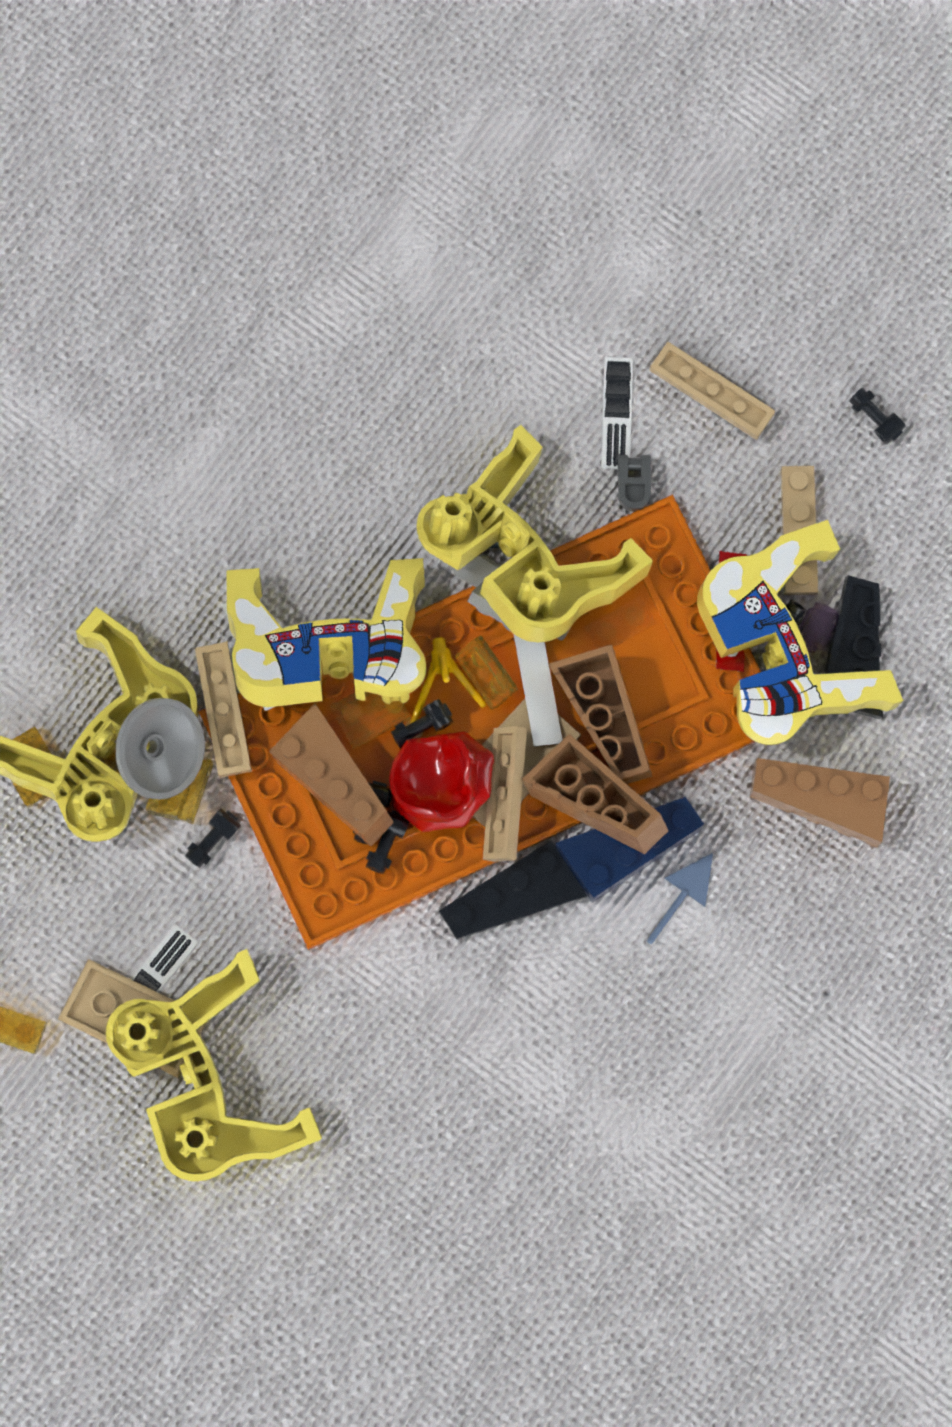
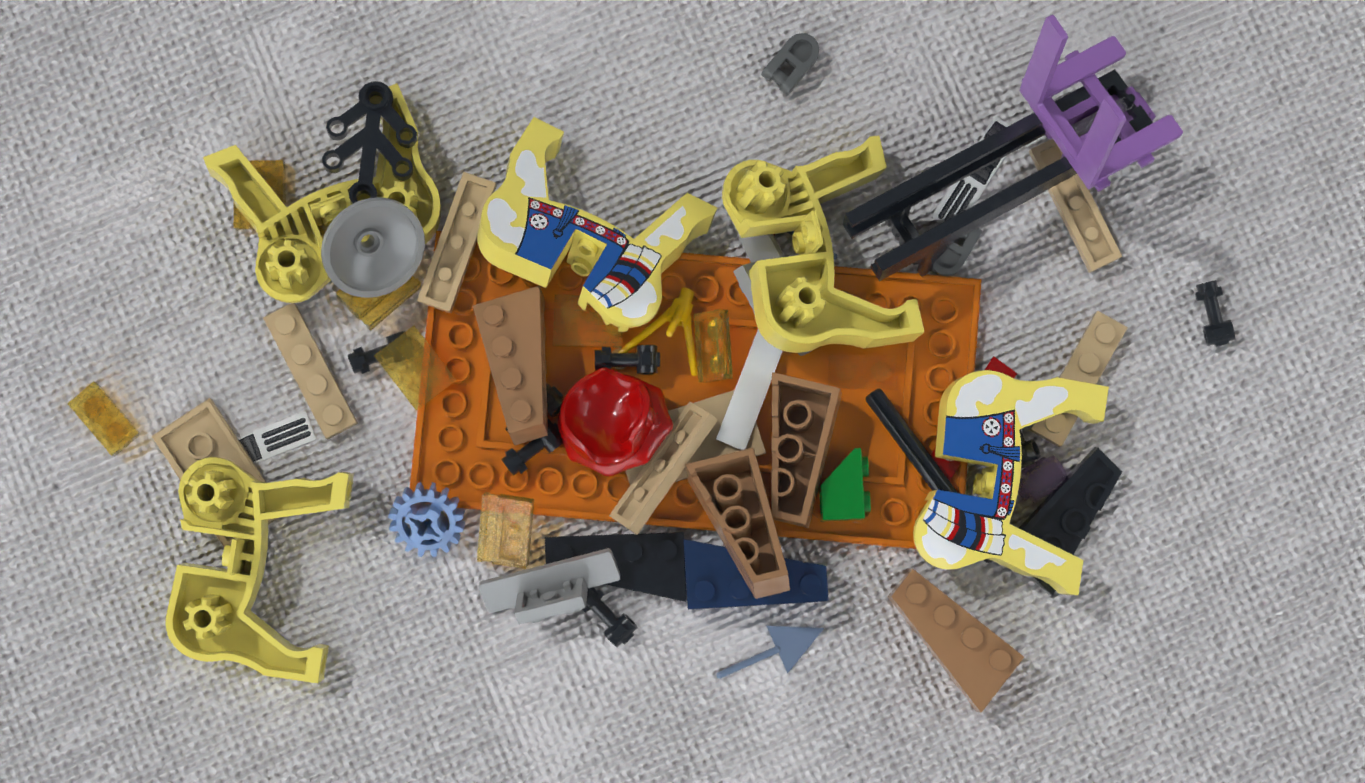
camera: 30 degrees right, 5 degrees up
(102, 664) = (370, 139): none -> black plant
(160, 887) = (310, 370): none -> tan plate
(249, 832) = (415, 367): none -> clear yellow plate
(346, 955) = (426, 504): none -> medium blue gear
(403, 923) = (505, 530): none -> clear yellow plate
(417, 396) = (799, 52): none -> dark grey plate
(468, 947) = (550, 587): none -> light grey bracket
(545, 950) = (619, 628): none -> black bar
(663, 729) = (843, 491): none -> green slope
(692, 659) = (909, 443): none -> black axle
(694, 317) = (1095, 127): none -> piece

